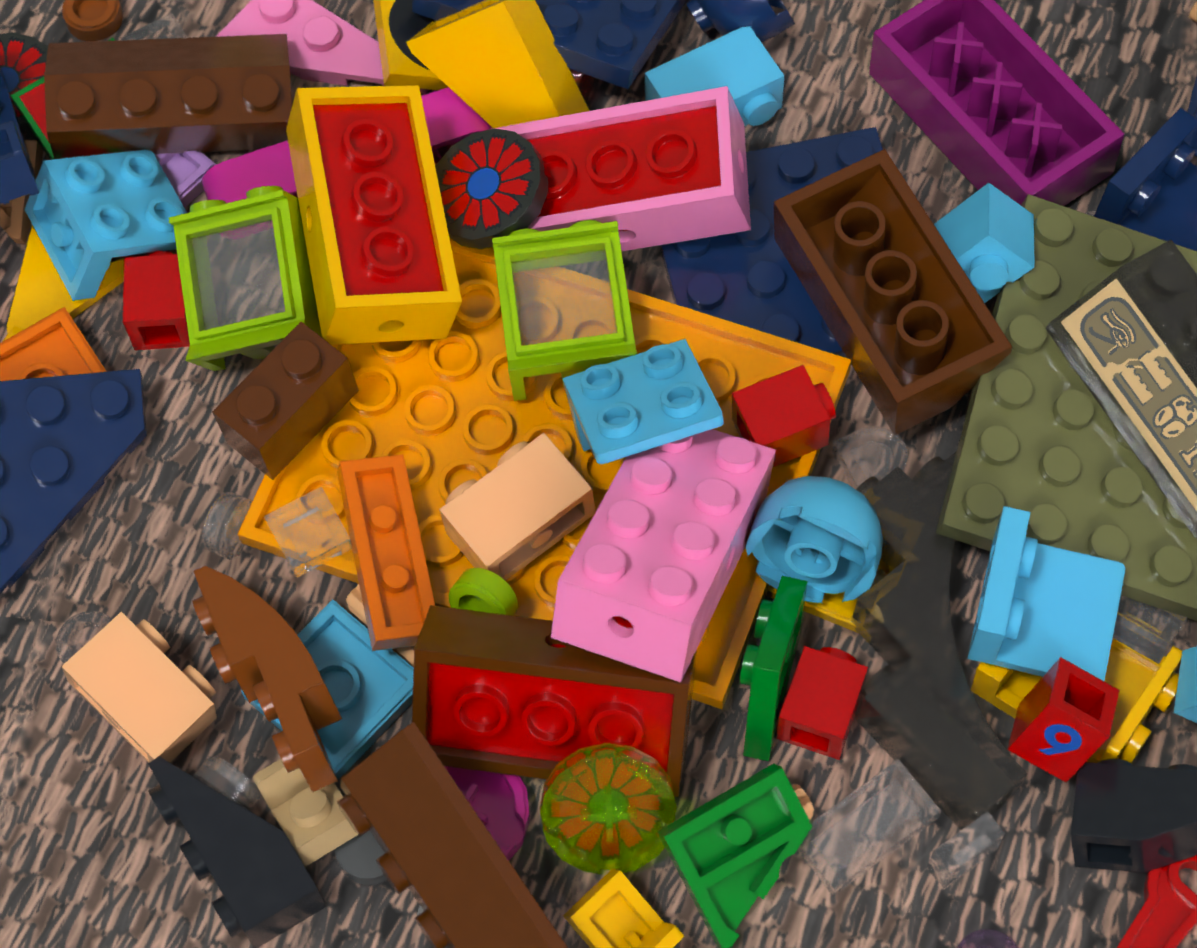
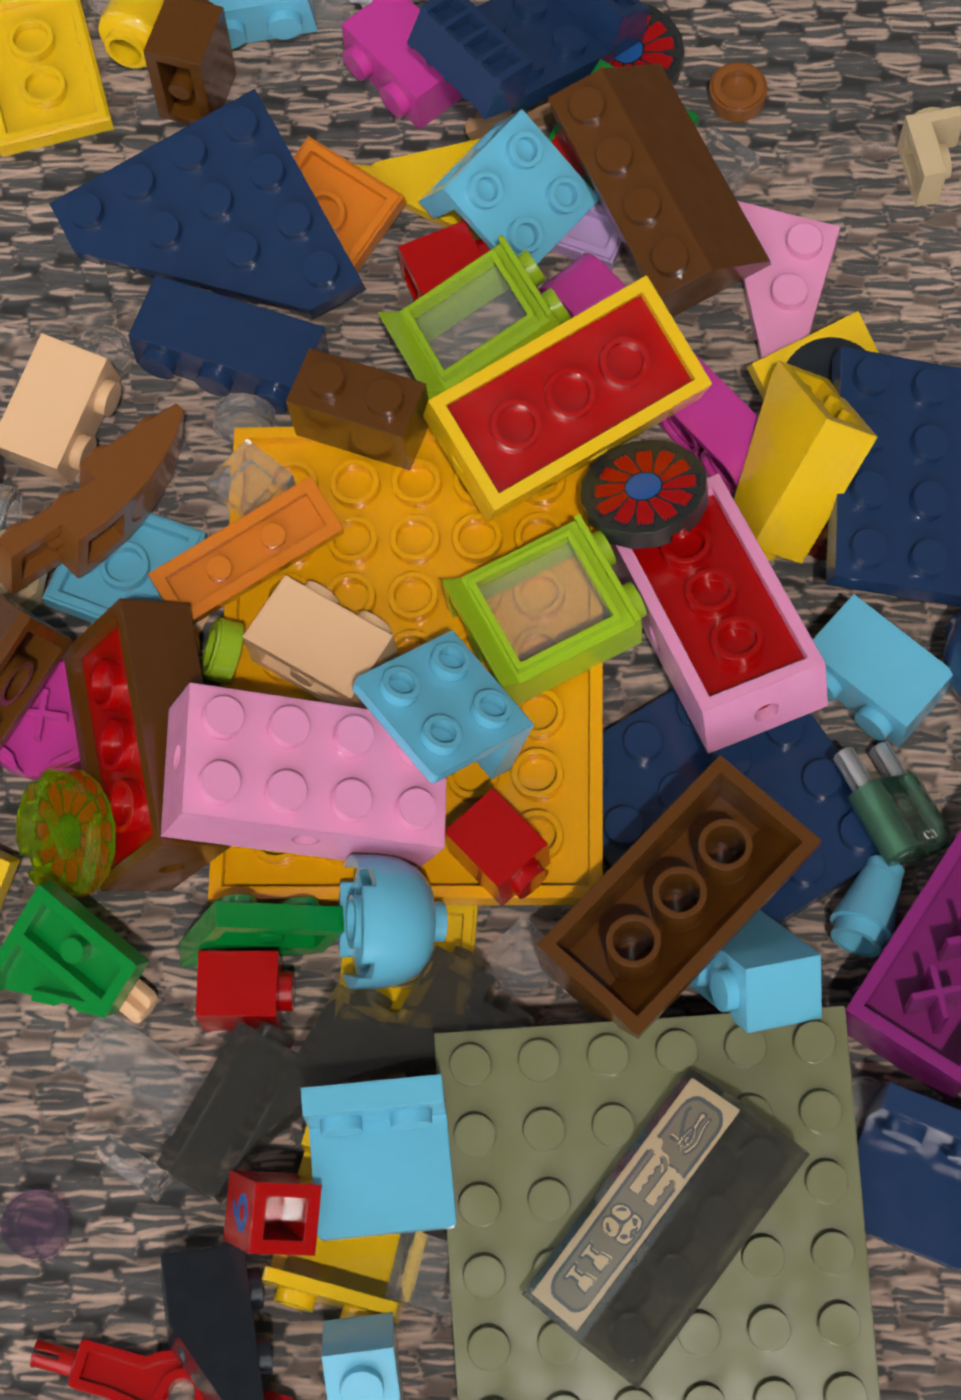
camera: 70 degrees right, 5 degrees up
(143, 515) = (221, 342): none -> dark blue brick
(845, 116) = (895, 807): none -> clear green piece
(931, 173) = (868, 910): none -> medium azure cone

